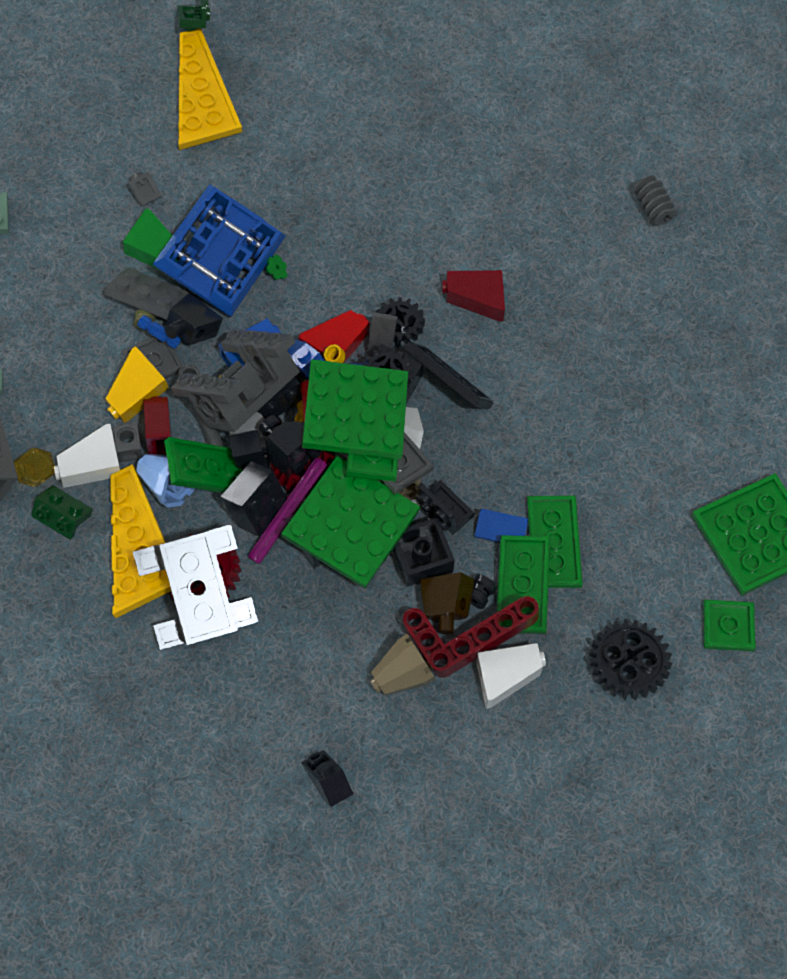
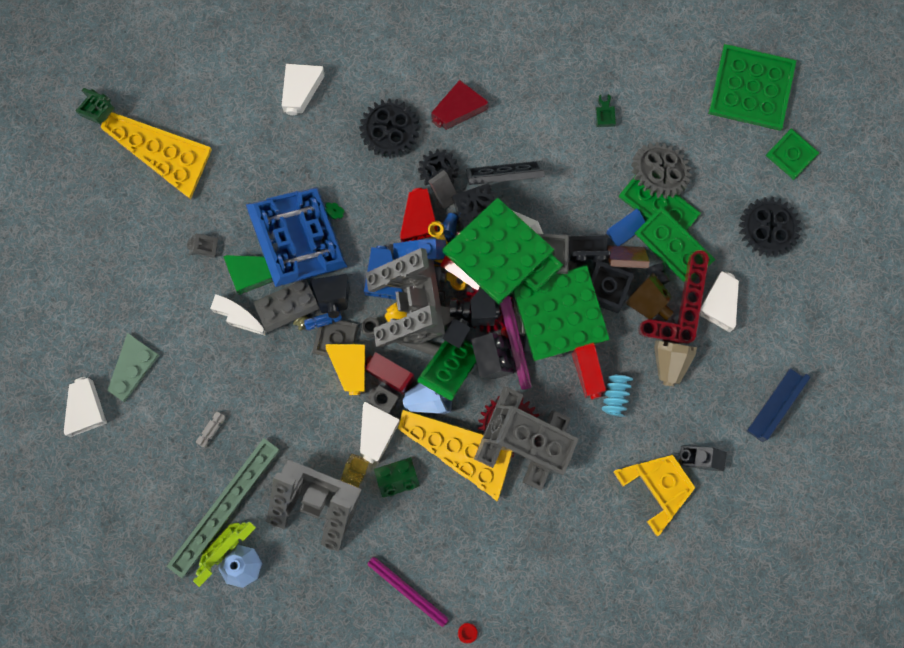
camera: 45 degrees left, 15 degrees up
(100, 260) = (236, 315): none -> white slope
(270, 762) = (666, 483): none -> yellow wing
(319, 644) = (616, 395): none -> medium azure piece
(320, 597) = (589, 371): none -> red slope
(368, 153) = (300, 86): none -> white slope
(417, 245) = (394, 113): none -> black gear
(450, 810) = (777, 405): none -> dark blue fence
(469, 545) = (628, 256): none -> reddish brown tile
(579, 494) = (661, 170): none -> dark grey gear
(597, 422) = (605, 115): none -> dark green plate

